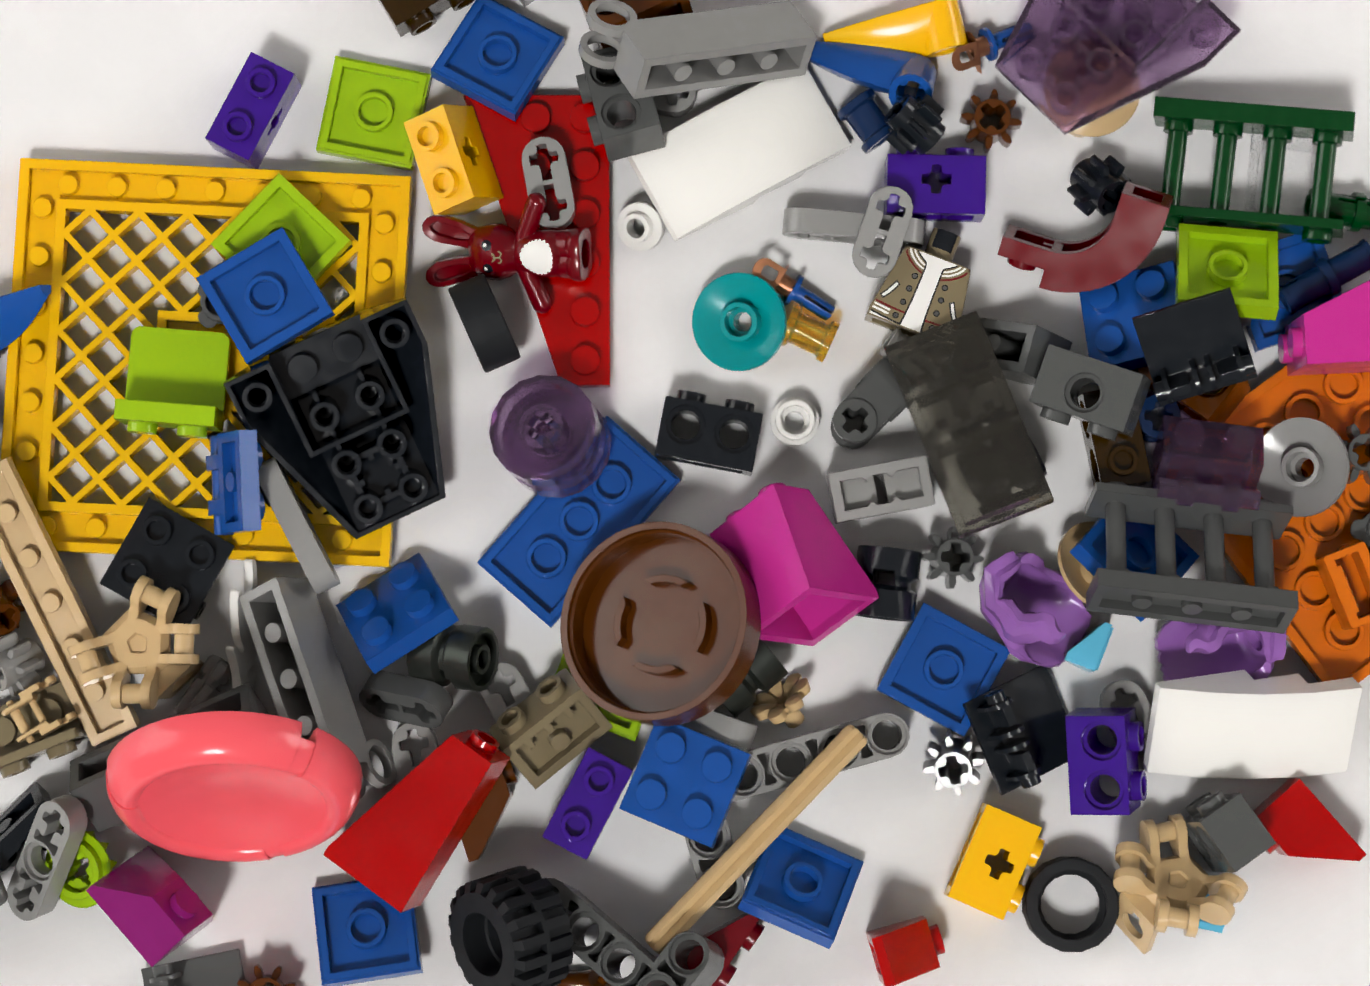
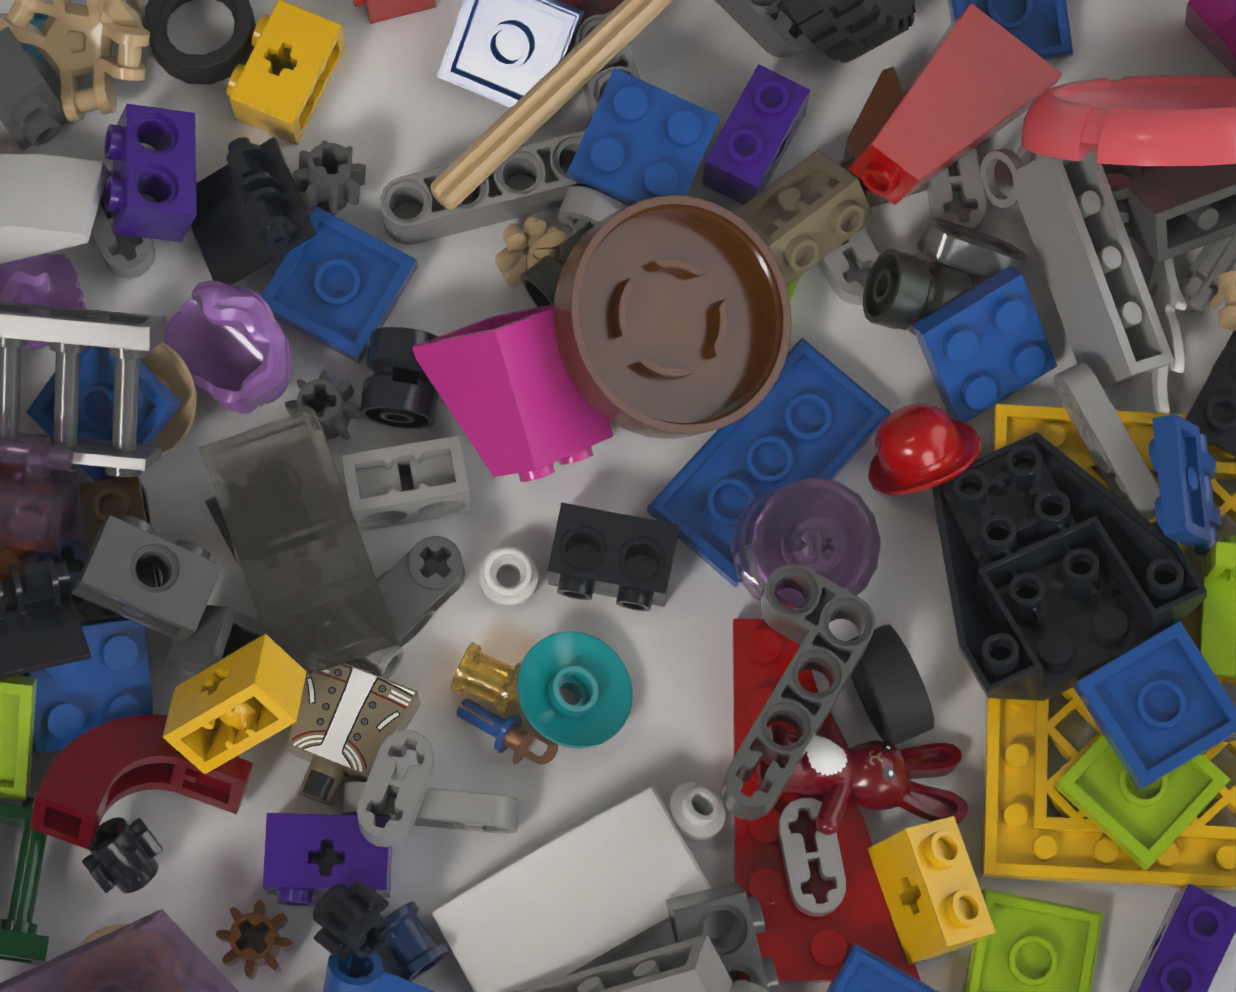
camera: 175 degrees right, 10 degrees down
(451, 522) = (920, 450): none -> red hat
(569, 288) = (789, 700): none -> dark grey beam
(1013, 287) = (235, 704): none -> yellow brick
(1090, 650) = (165, 295): medium azure slope -> none

